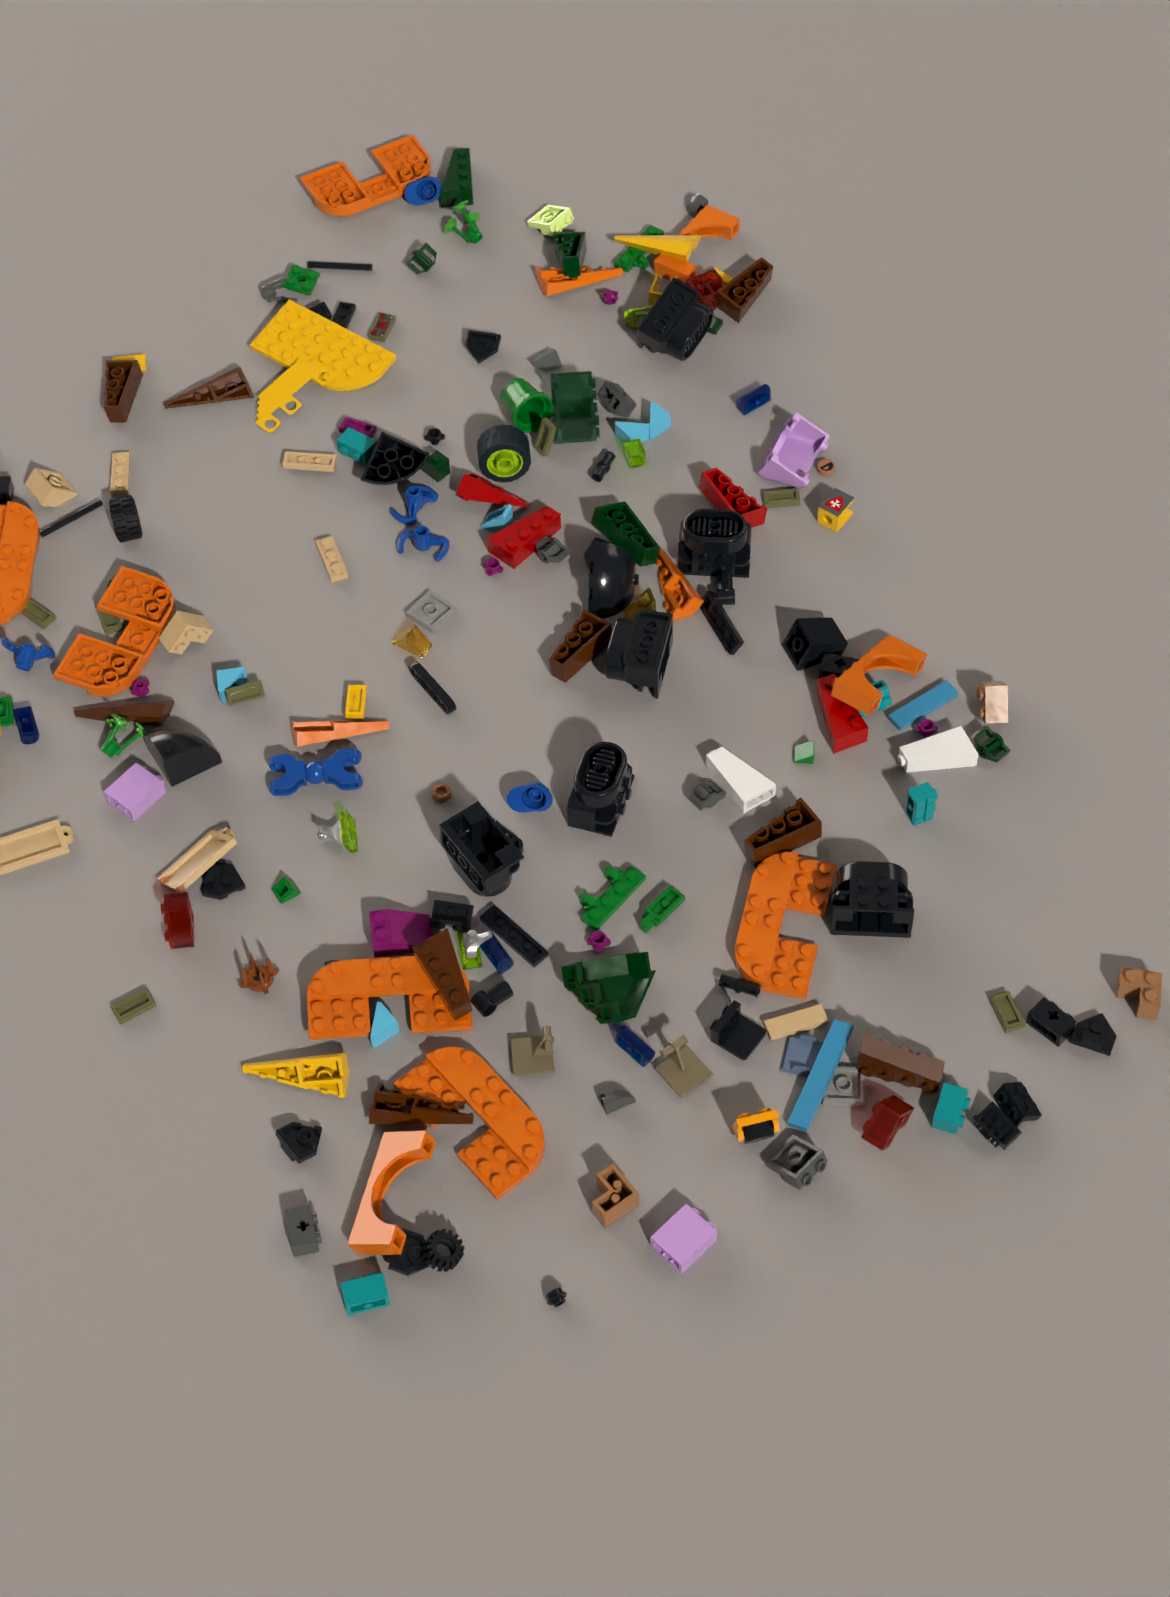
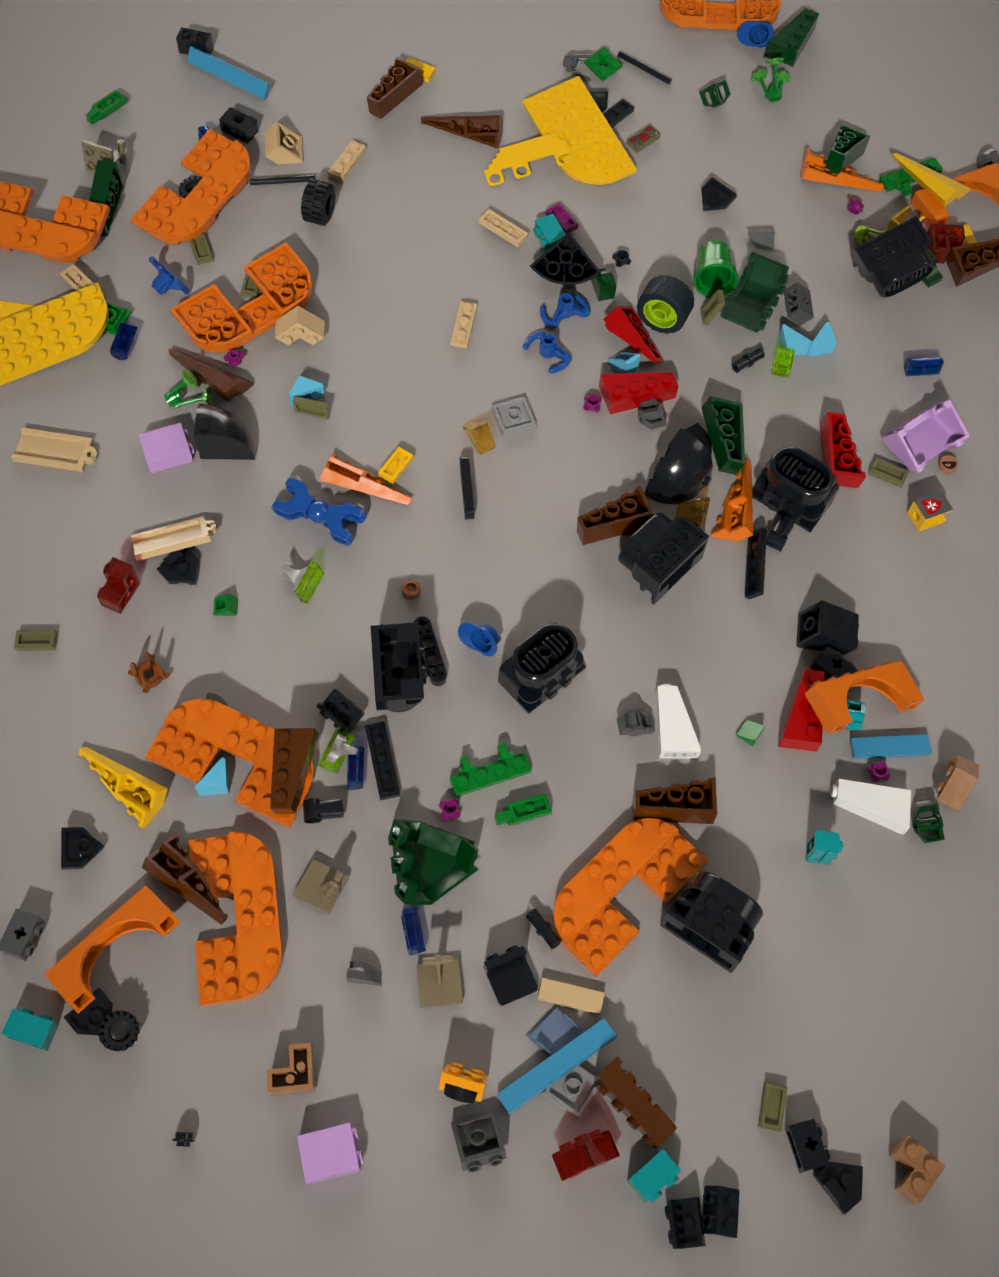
camera: 25 degrees right, 10 degrees up
(397, 931) = (287, 700): magenta slope -> none
(551, 219) = (850, 111): yellowish green plate -> none

